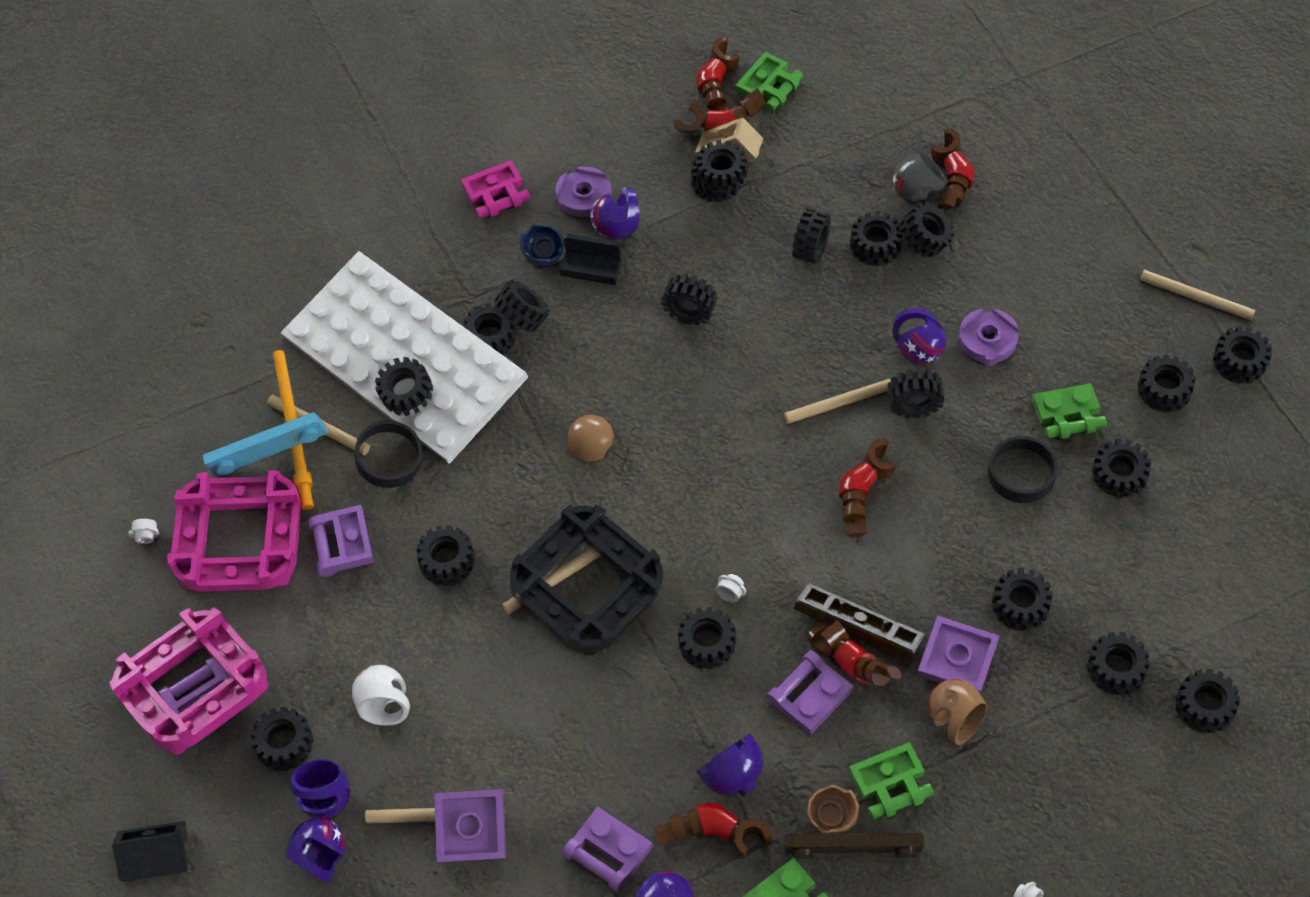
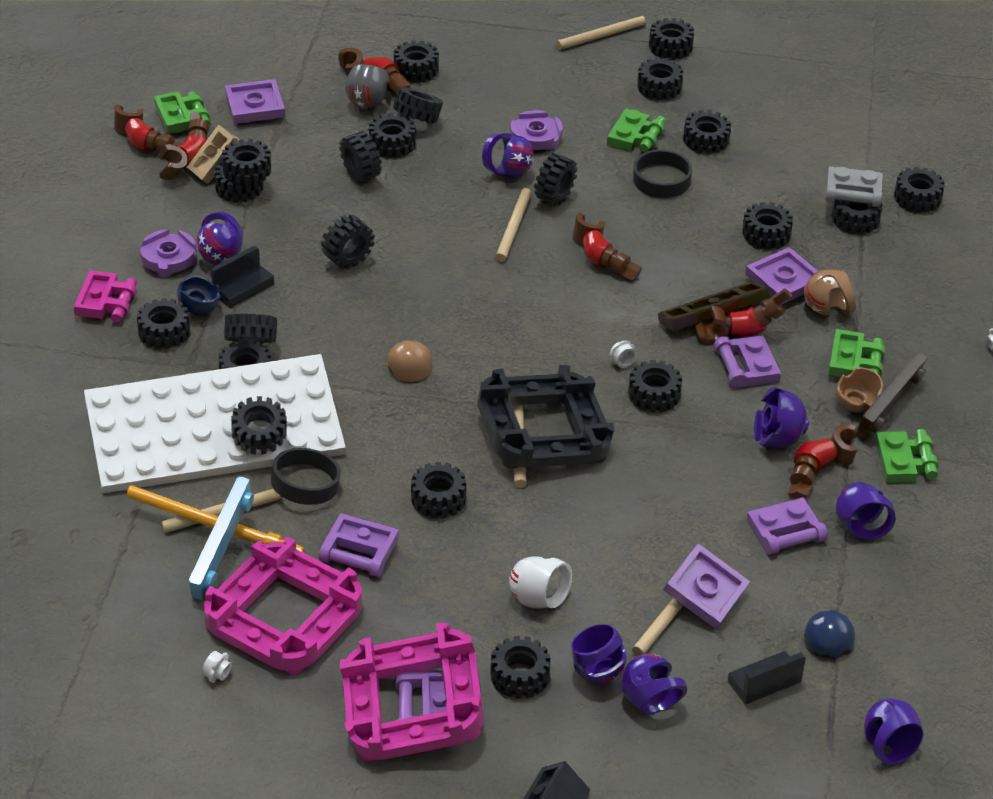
camera: 60 degrees left, 15 degrees down
(490, 234) = (163, 335): none -> black tyre
(829, 118) = (254, 101): none -> medium lavender plate
(1000, 176) = (417, 60): none -> black tyre
(1142, 636) = (854, 185): none -> light grey plate

